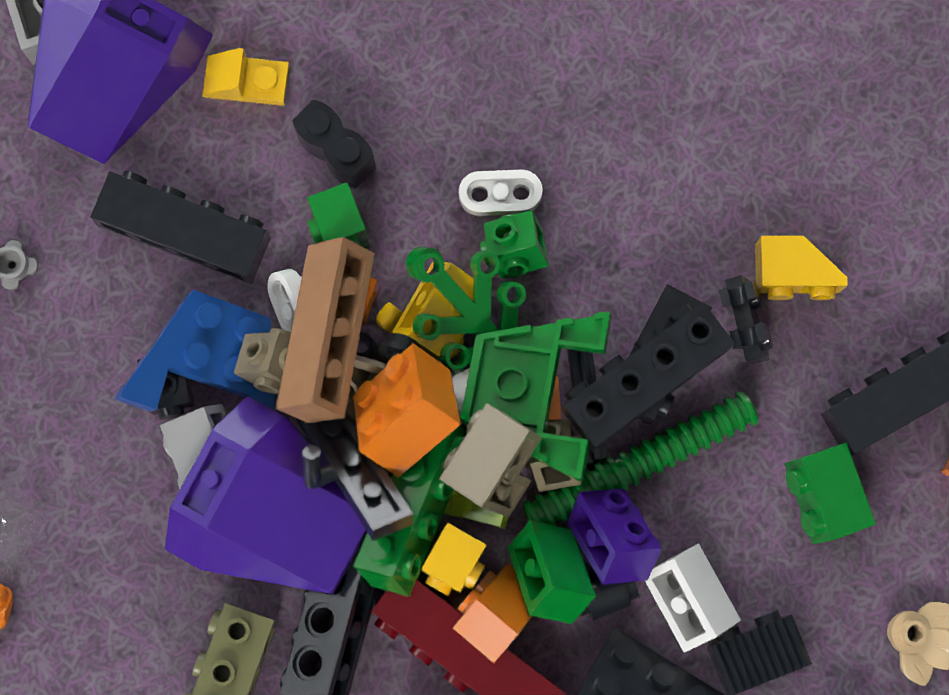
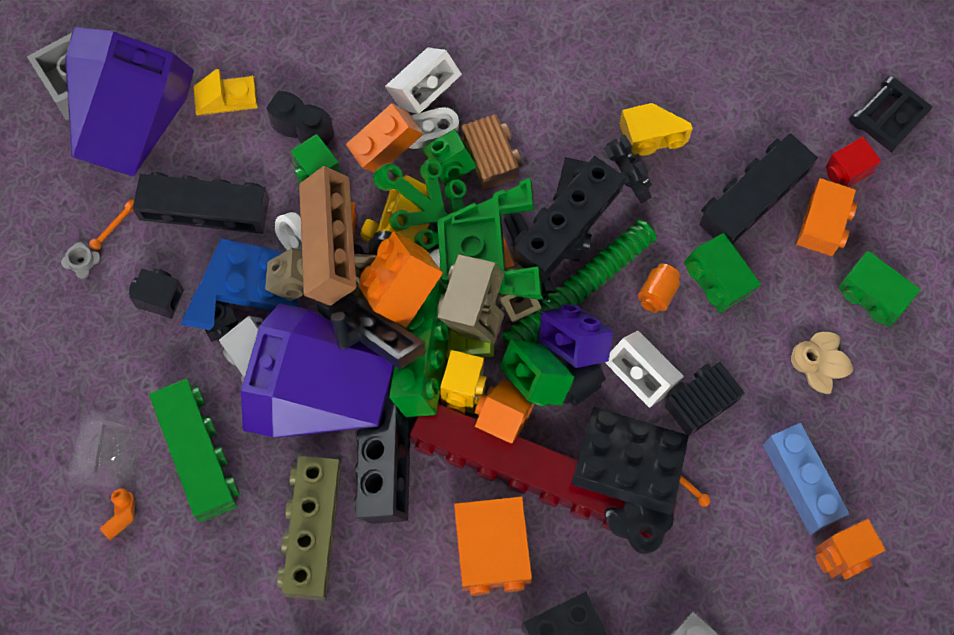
camera: 15 degrees left, 10 degrees down
(35, 246) = (95, 244): none -> orange hinge
(97, 334) = (156, 292): none -> black brick
(98, 559) = (194, 451): none -> green brick
(437, 200) = (384, 138): none -> orange brick
(509, 126) = (423, 80): none -> white brick
(573, 247) = (491, 151): none -> medium nougat brick
(743, 491) = (659, 288): none -> orange brick

